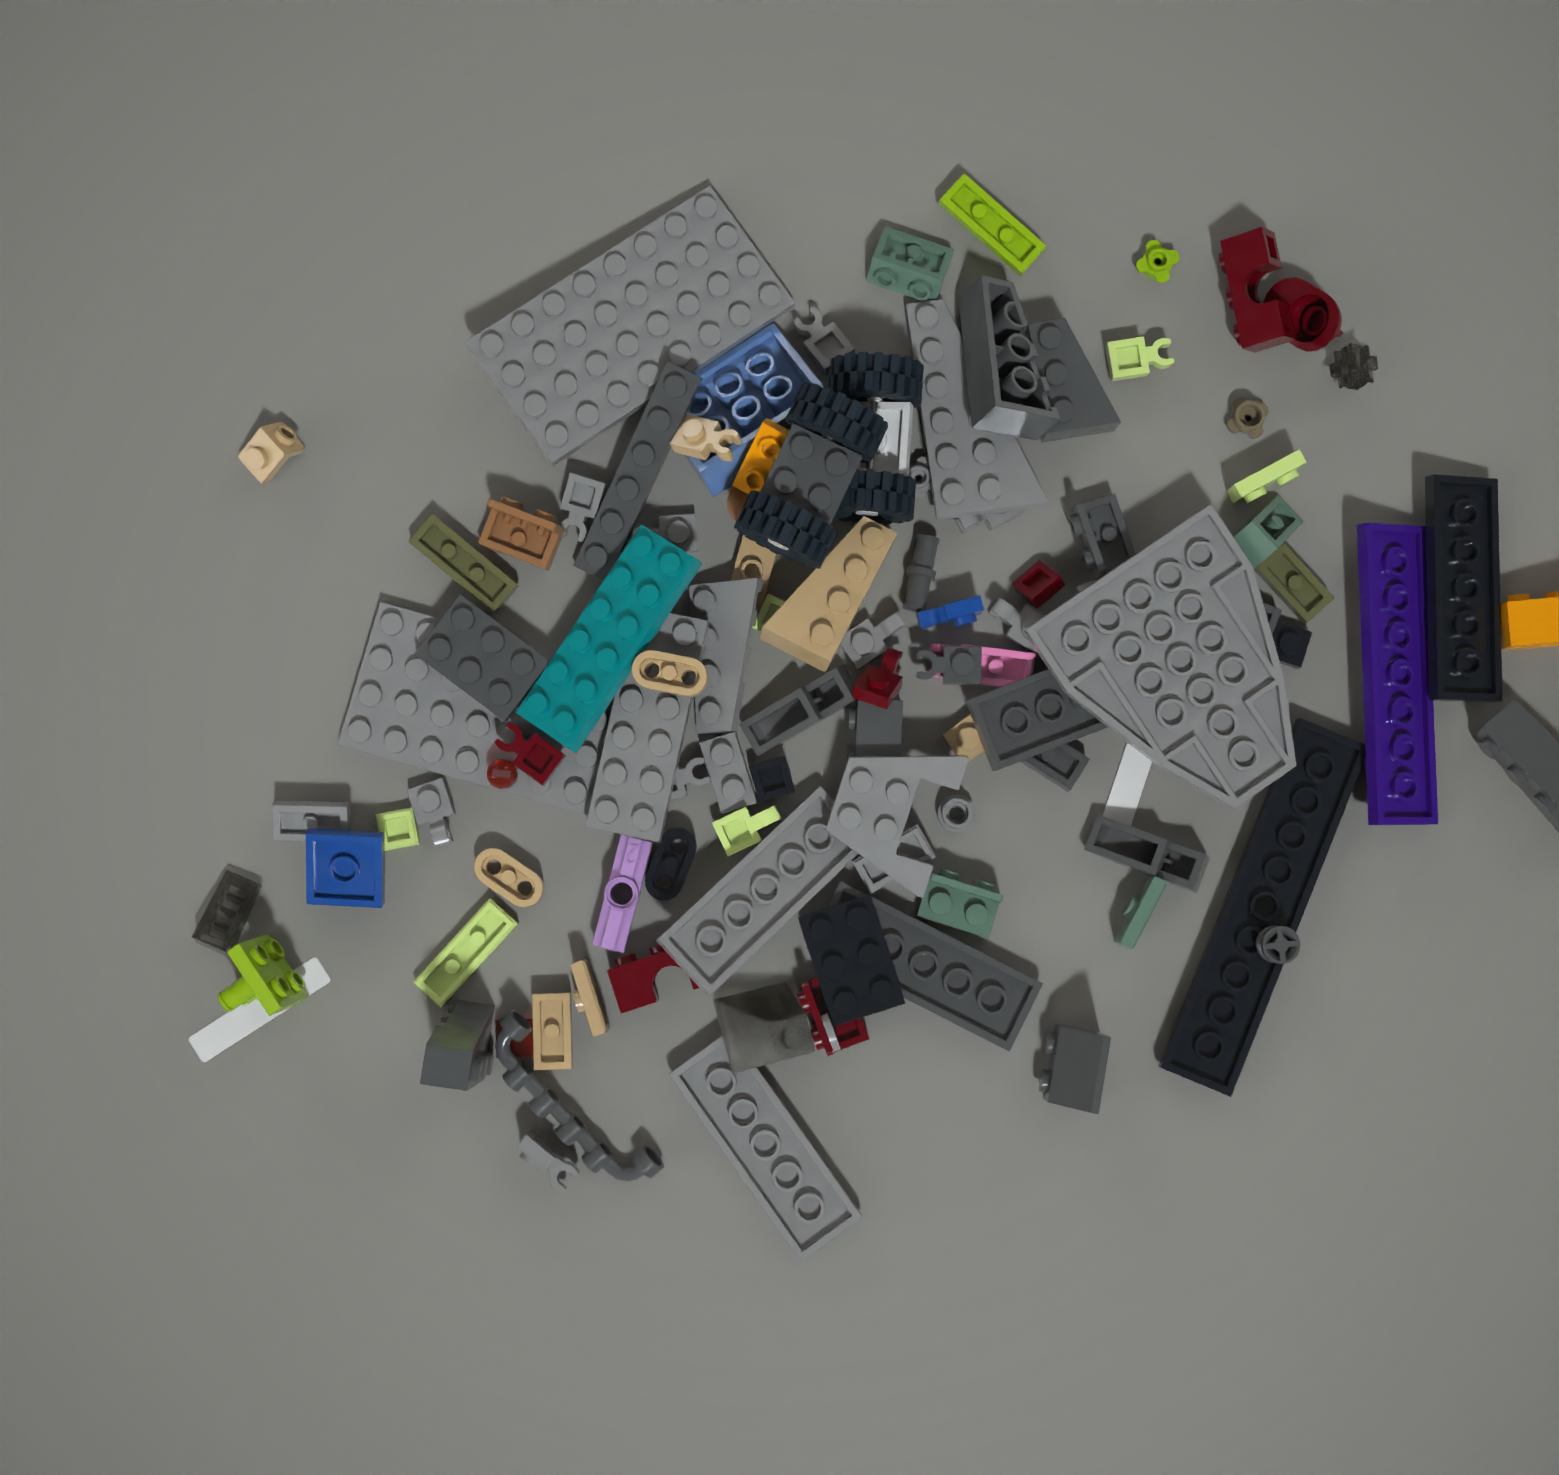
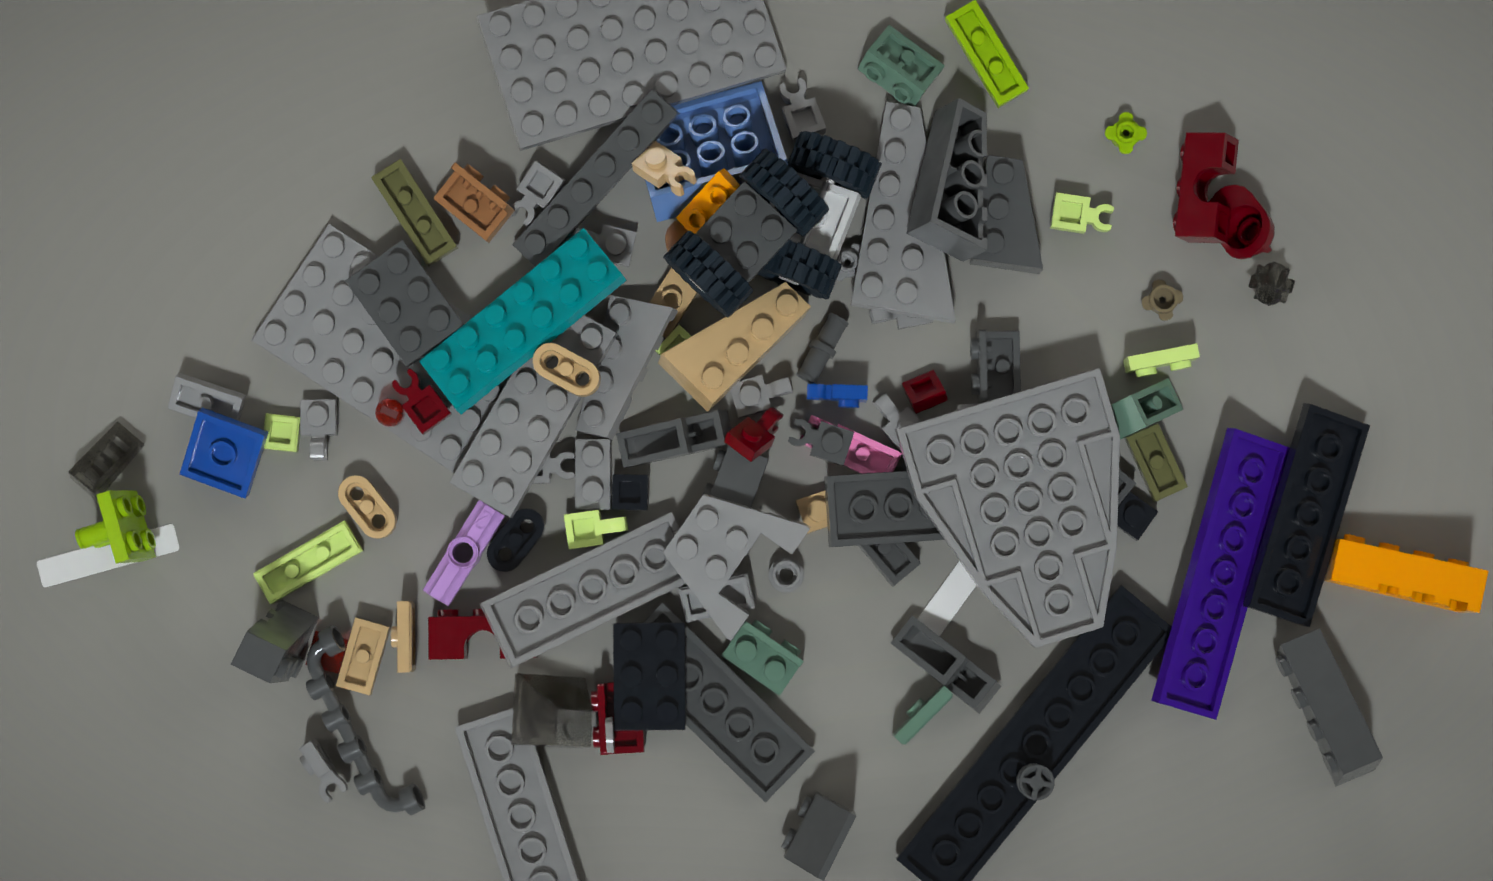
camera: 15 degrees right, 0 degrees up
(270, 450) = (273, 57): tan bracket -> none

